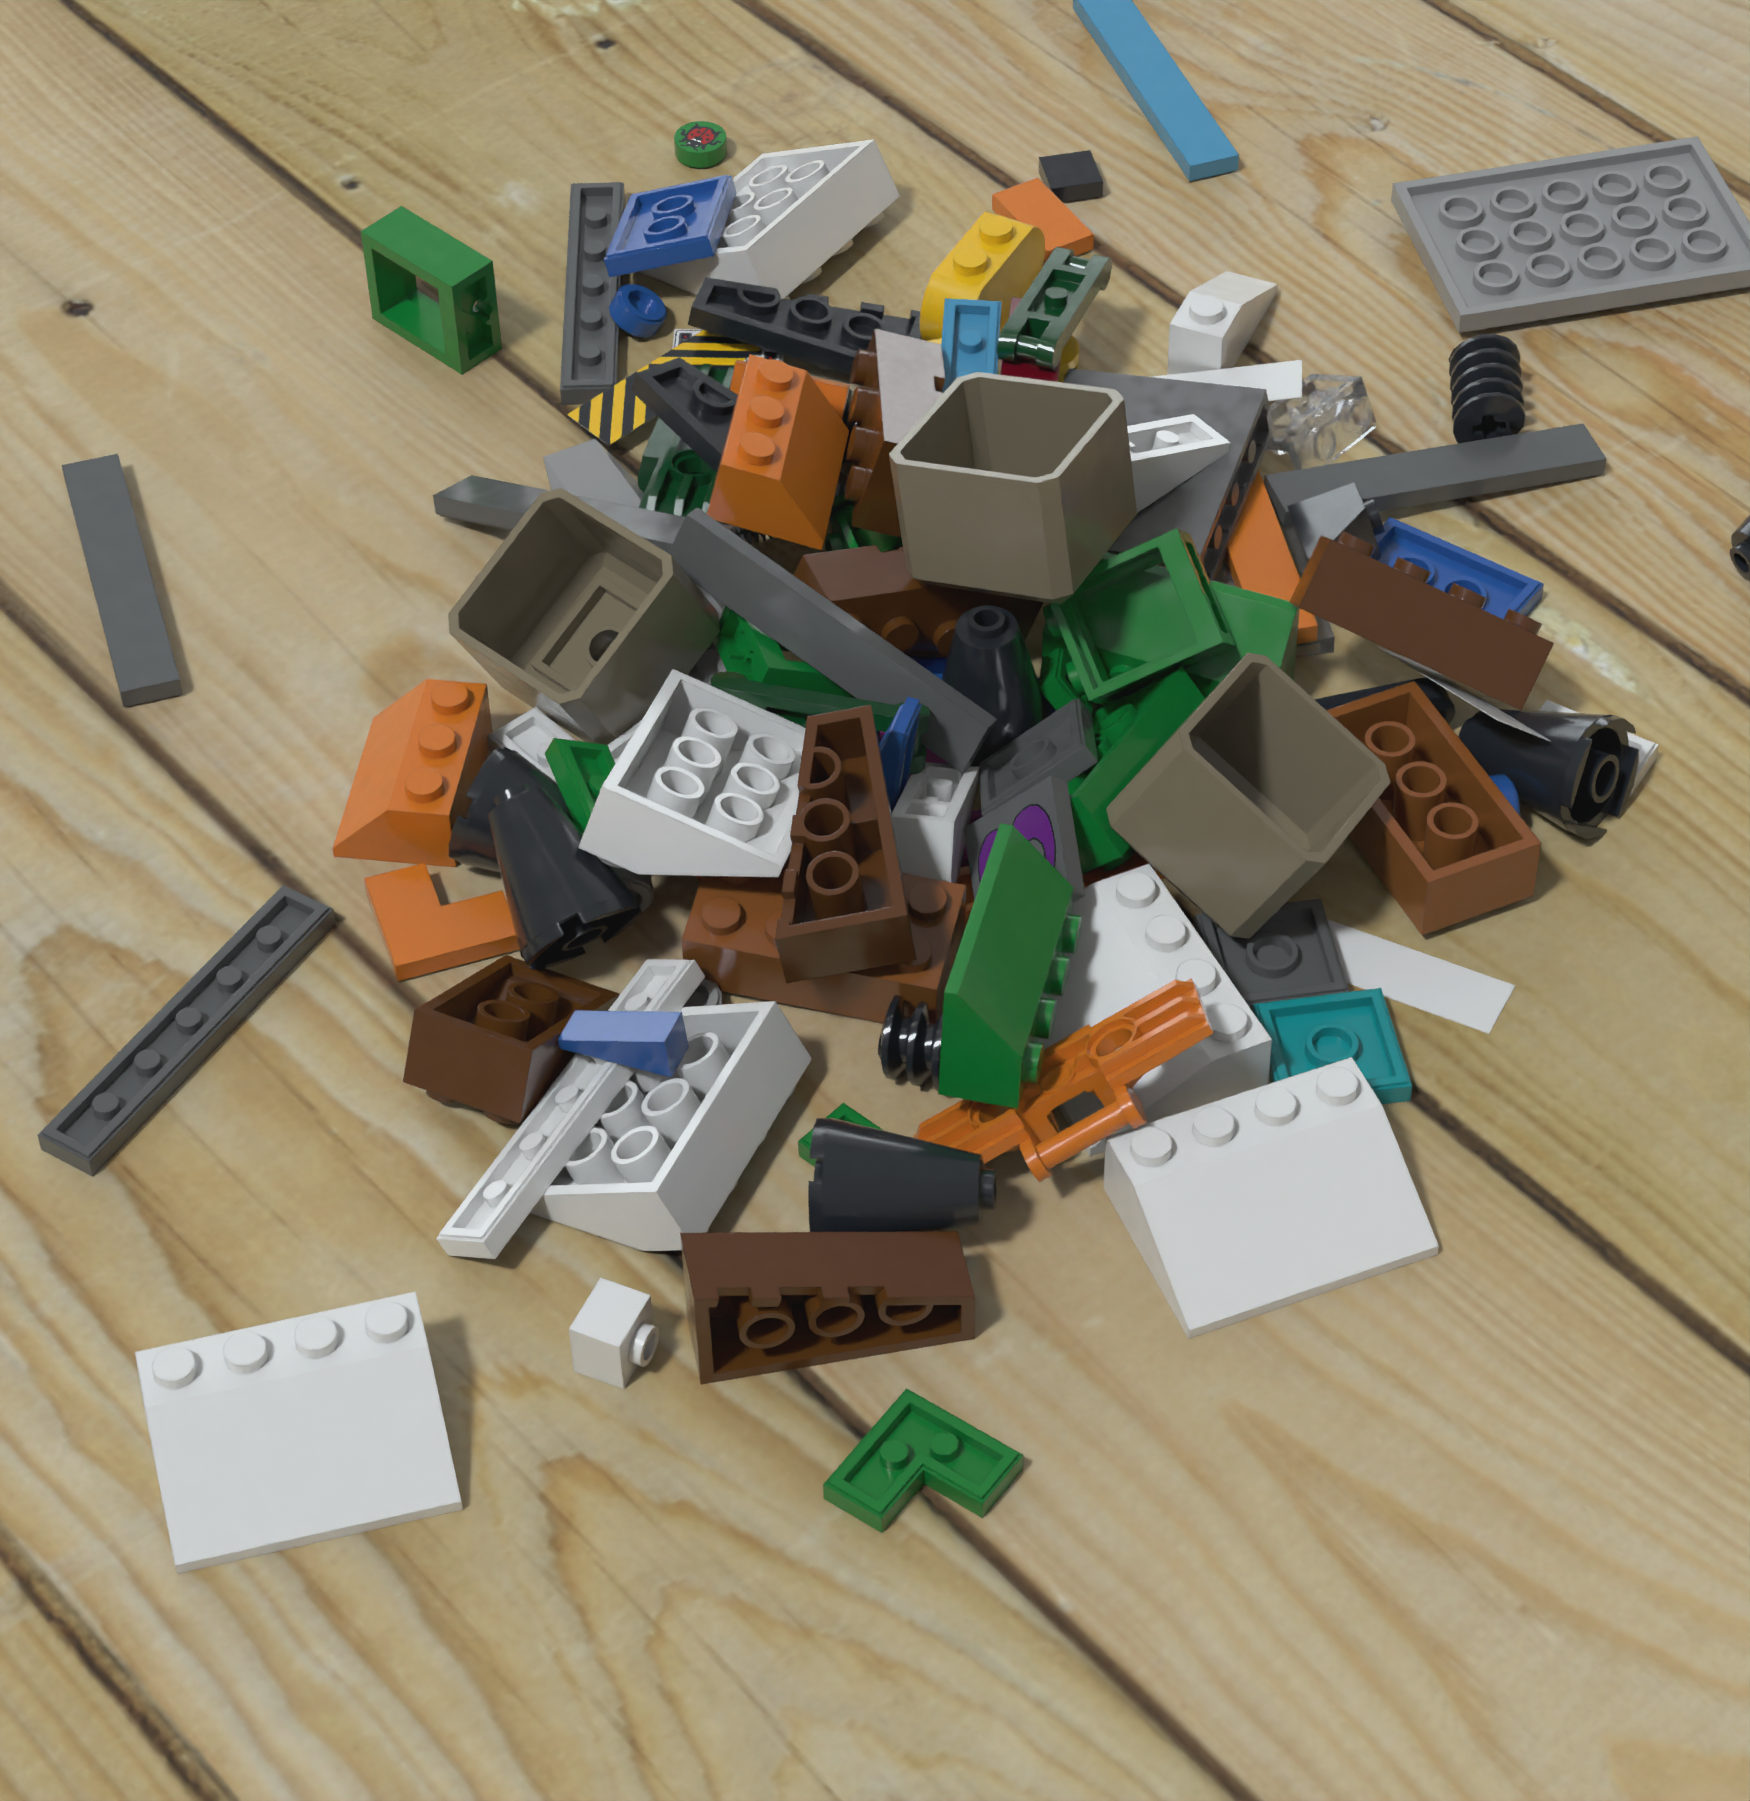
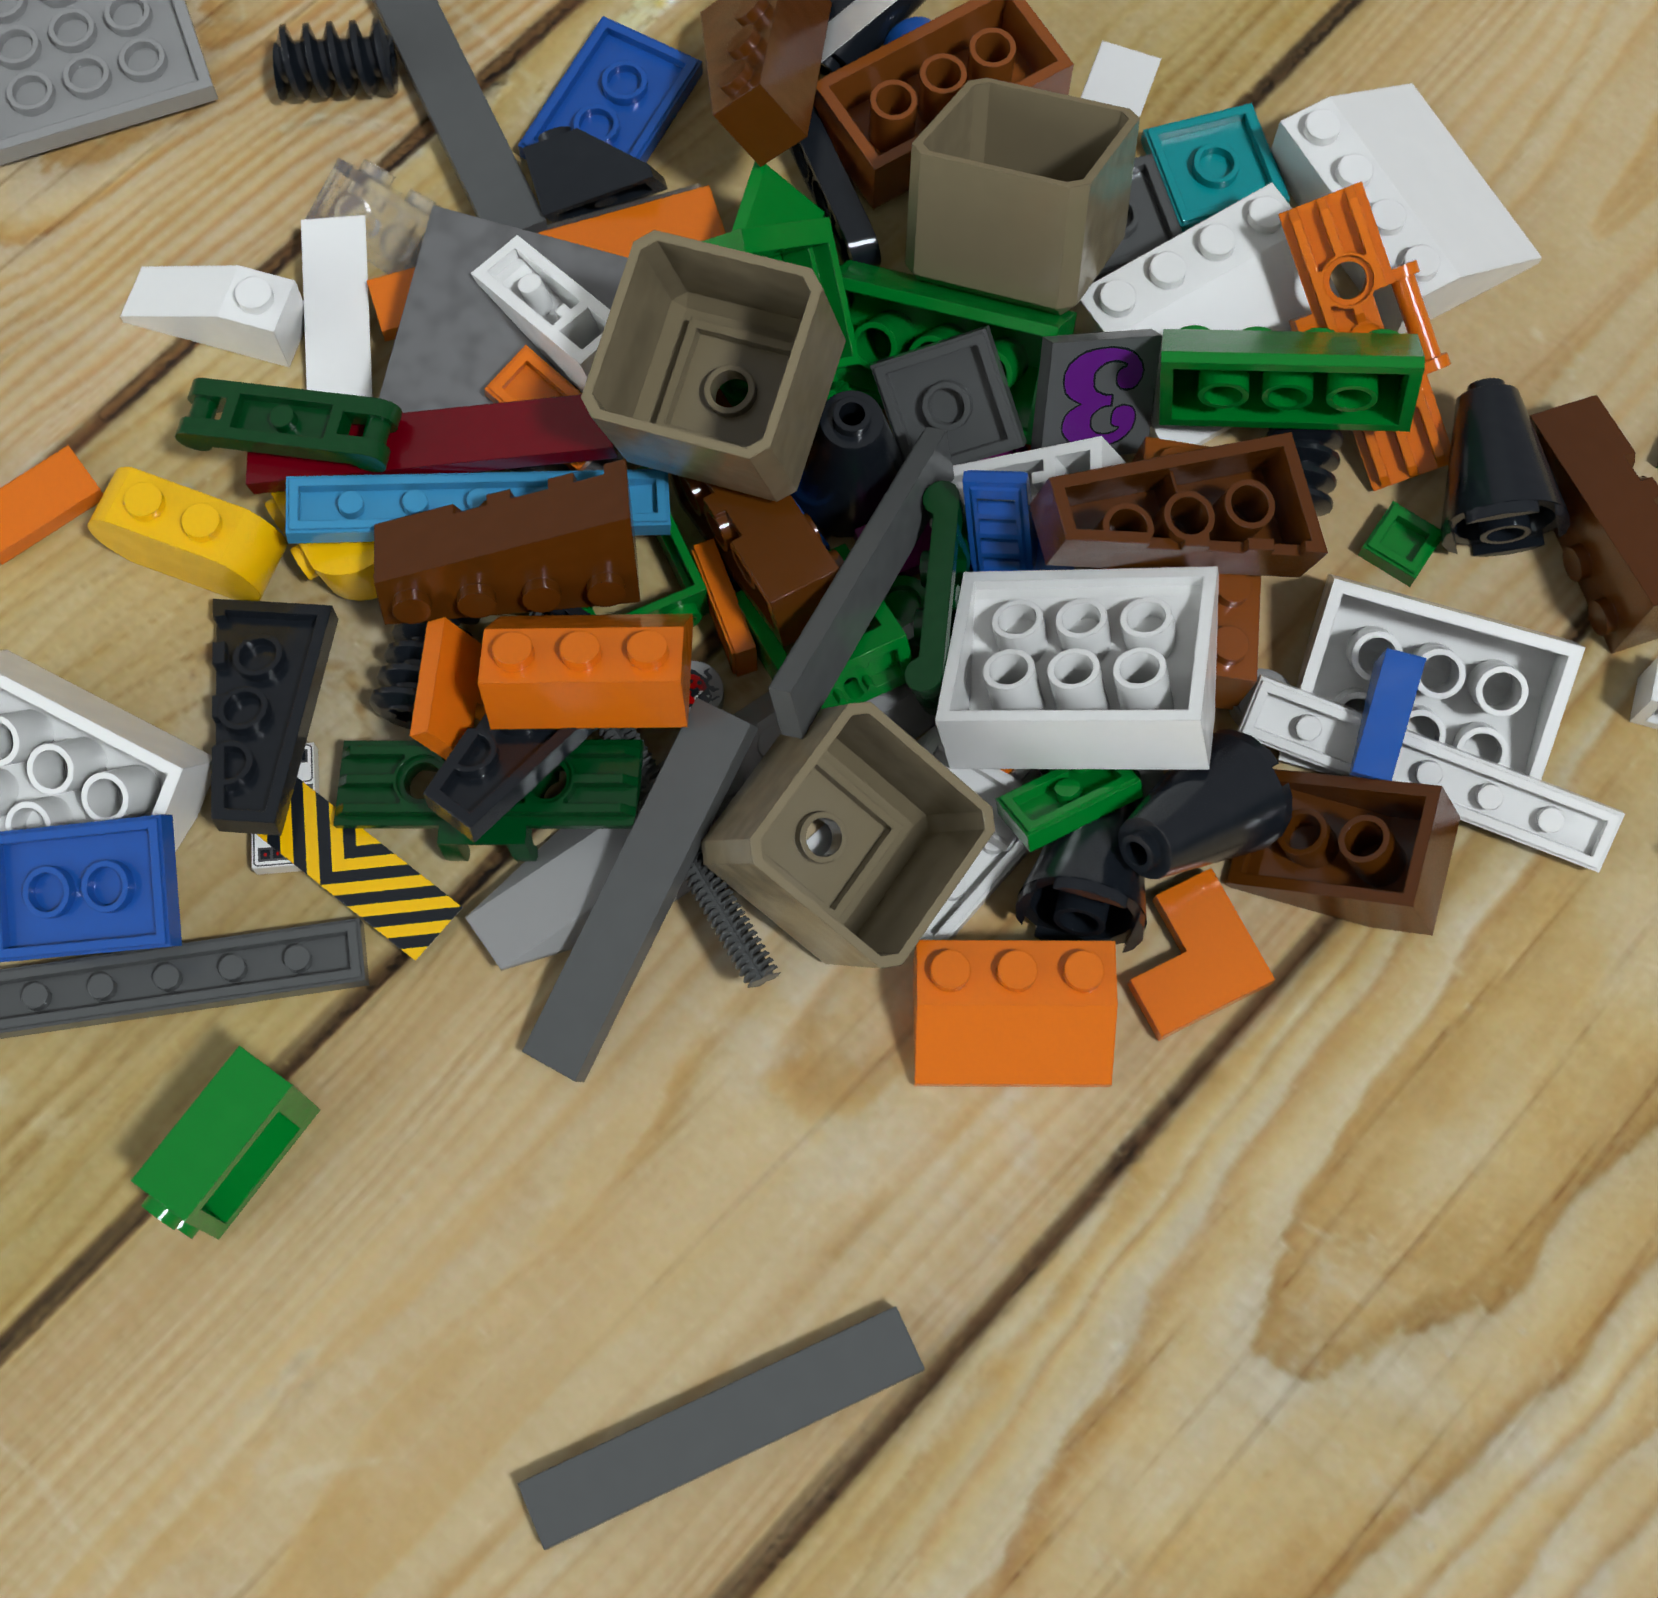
camera: 100 degrees left, 25 degrees up
(186, 1031) = (1380, 1174): dark grey tile -> none
(638, 310) = (219, 915): blue tile -> none

